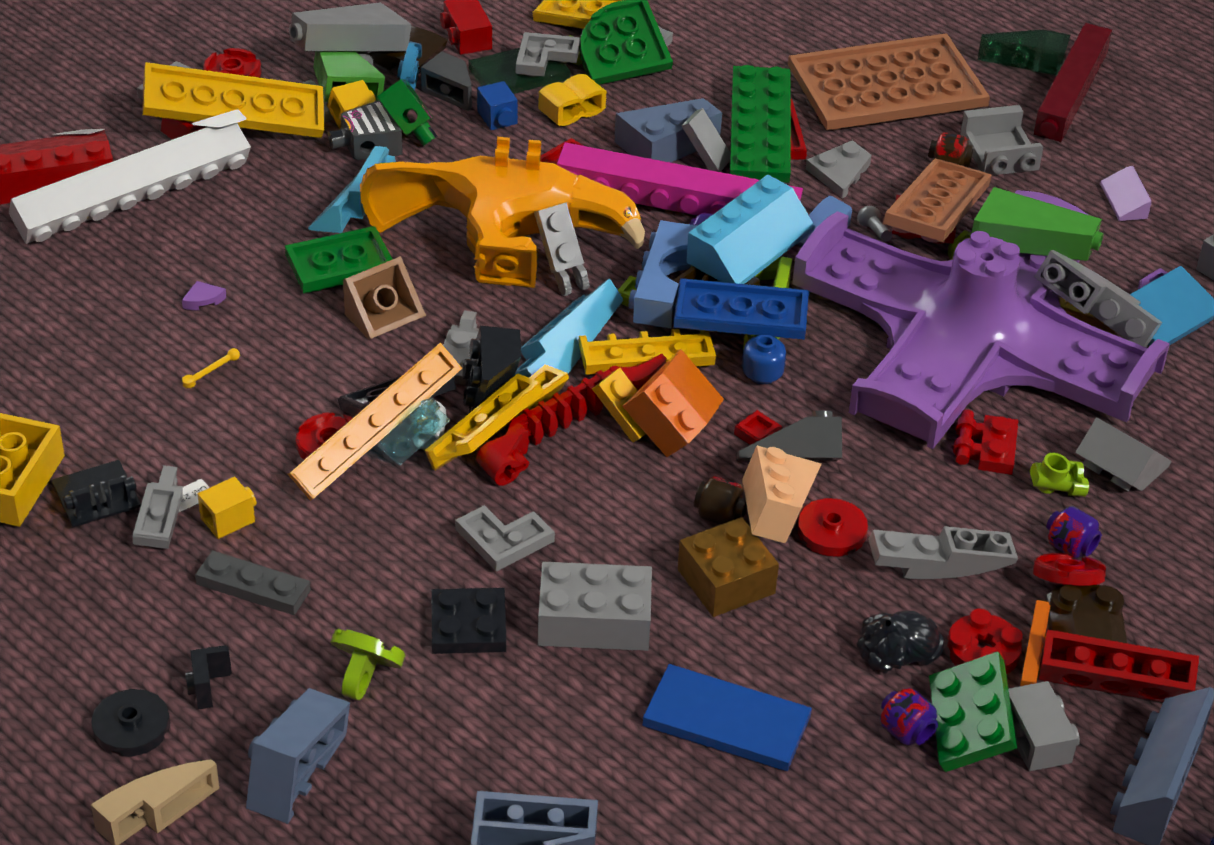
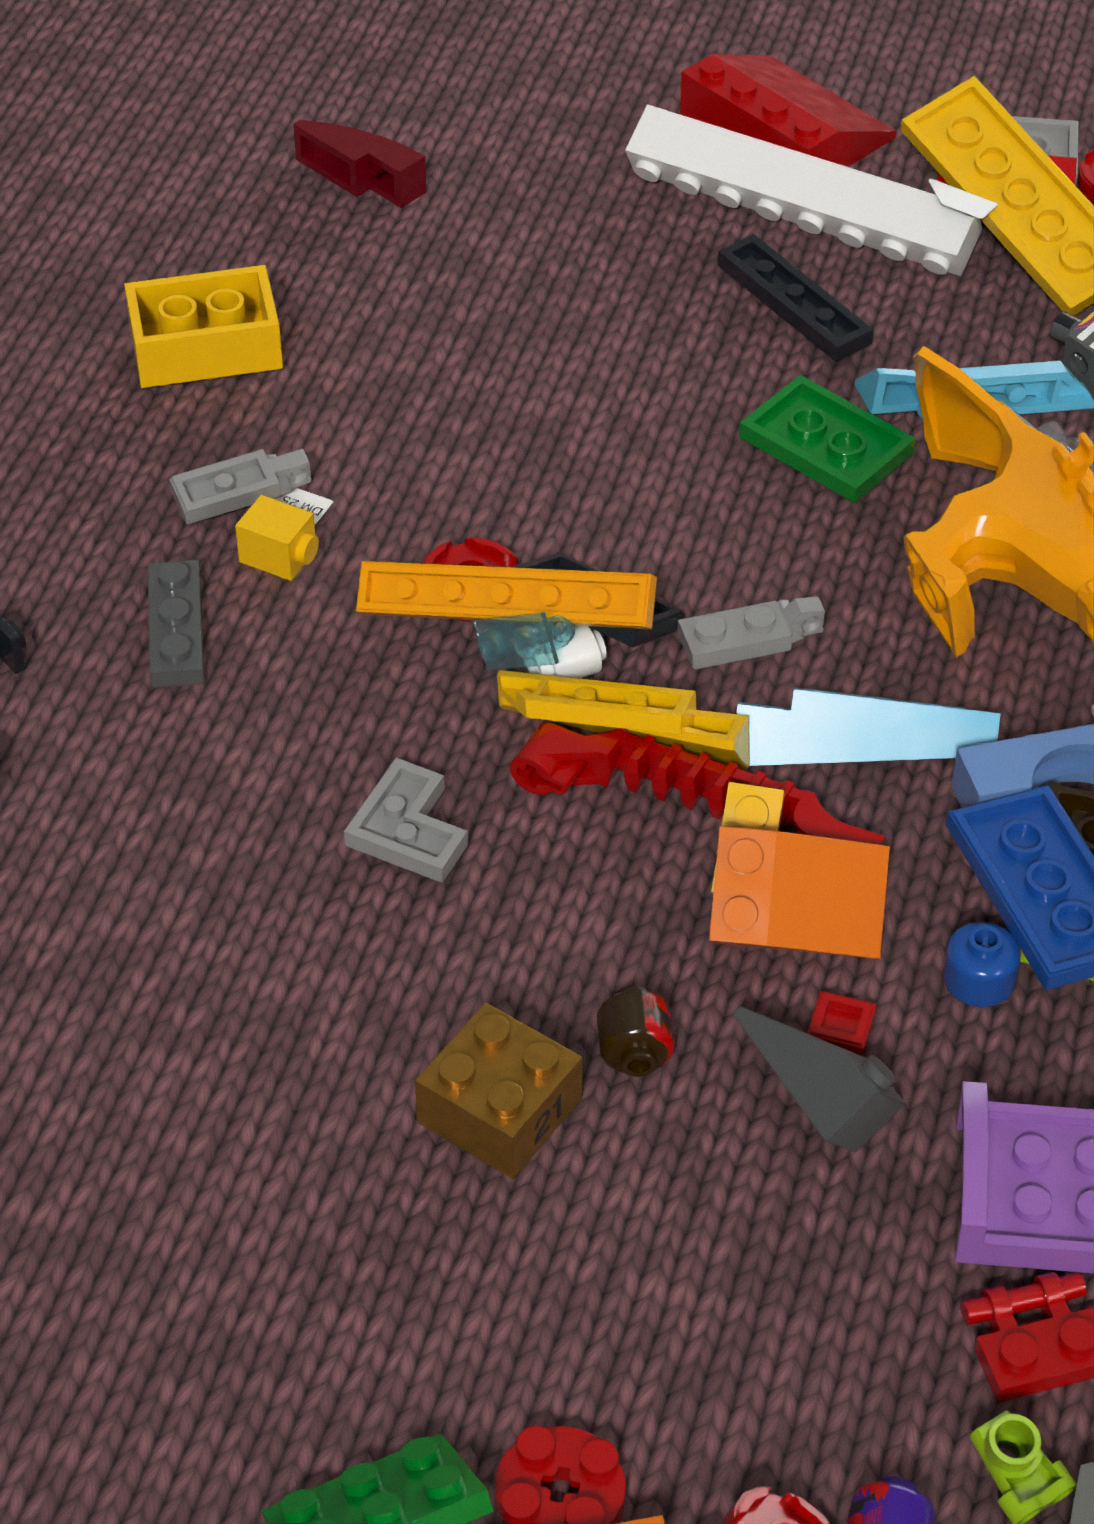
camera: 65 degrees right, 5 degrees up
(85, 131) = (870, 114): white sticker -> none
(96, 493) = (232, 419): black hinge -> none
(190, 380) = (495, 412): yellow hinge -> none
(203, 294) = (655, 351): medium lavender tile -> none
(212, 223) = (795, 297): none -> black plate
(366, 653) = (83, 766): lime tile -> none
(381, 299) = (772, 507): medium nougat slope -> none
(468, 620) = (236, 855): black plate -> none
(491, 363) = (696, 653): black slope -> none
(561, 247) = (1016, 631): light grey hinge -> none
(595, 606) = (326, 970): light grey brick -> none
(636, 351) = (917, 847): yellow hinge -> none
(727, 717) = (217, 1212): blue tile -> none
(776, 491) = (664, 1080): light nougat wedge -> none
(832, 527) = (690, 1218): red plate -> none
(899, 640) = (487, 1369): black hair -> none
(909, 717) = (321, 1430): dark purple head -> none
(949, 555) = (712, 1356): light grey slope -> none

